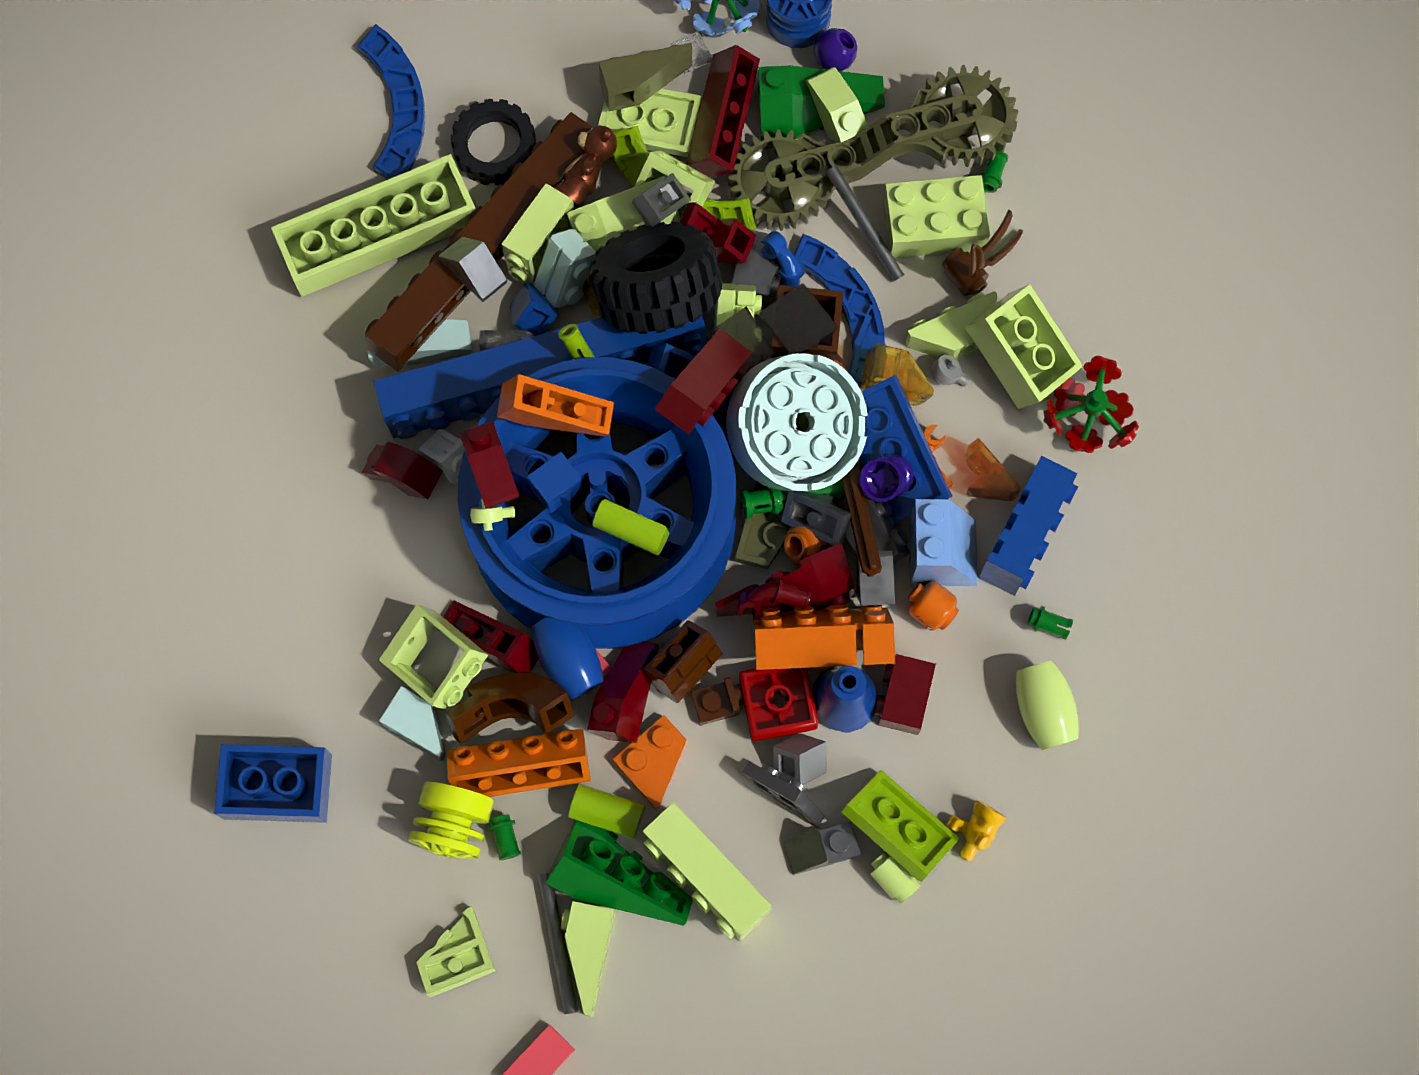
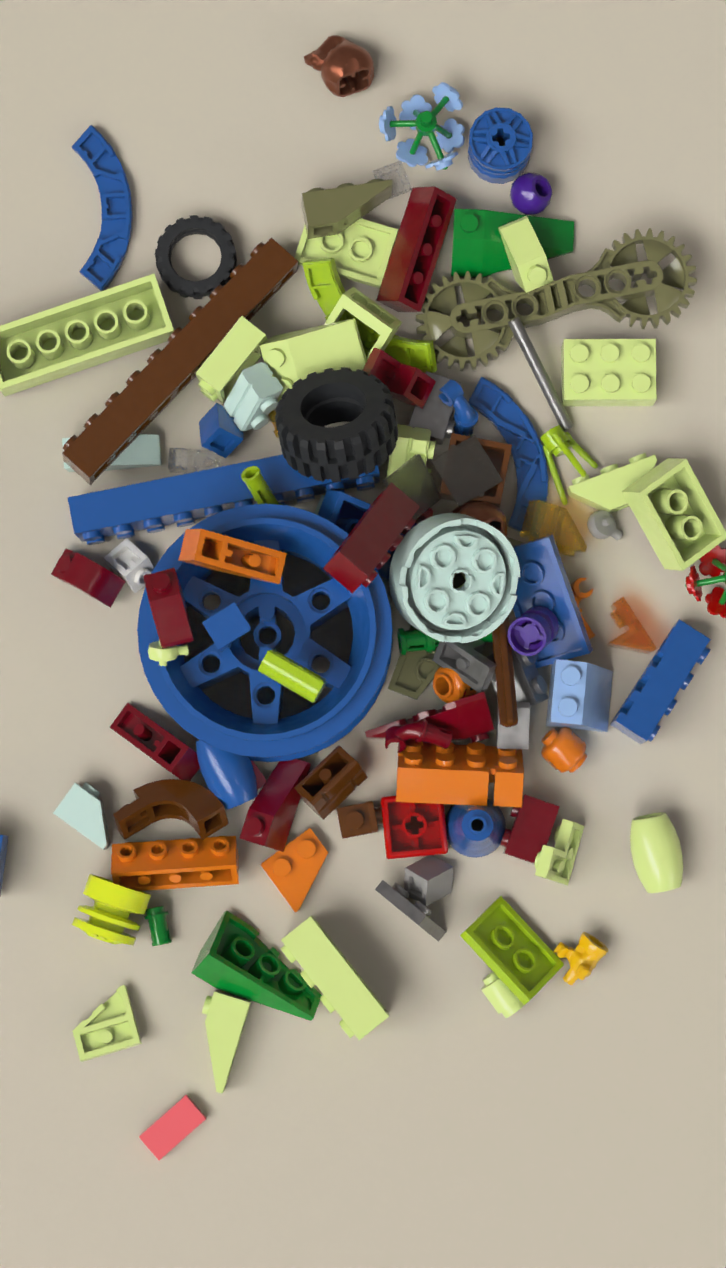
camera: 10 degrees right, 10 degrees up
(403, 652) = (85, 741): yellowish green window -> none
(474, 267) = (167, 393): slope -> none
(558, 946) = (198, 1026): flat silver bar -> none
(582, 174) = (278, 303): copper piece -> none
(606, 810) = (251, 911): lime brick -> none
(661, 200) = (348, 345): flat silver slope -> none
(822, 847) = (440, 961): flat silver slope -> none
(892, 292) = (559, 442): none -> lime plant
(939, 719) = (558, 862): none -> yellowish green plate
(967, 268) = (632, 430): reddish brown plant -> none
(993, 172) = (667, 333): green pin -> none
(1048, 621) = (667, 773): green pin -> none

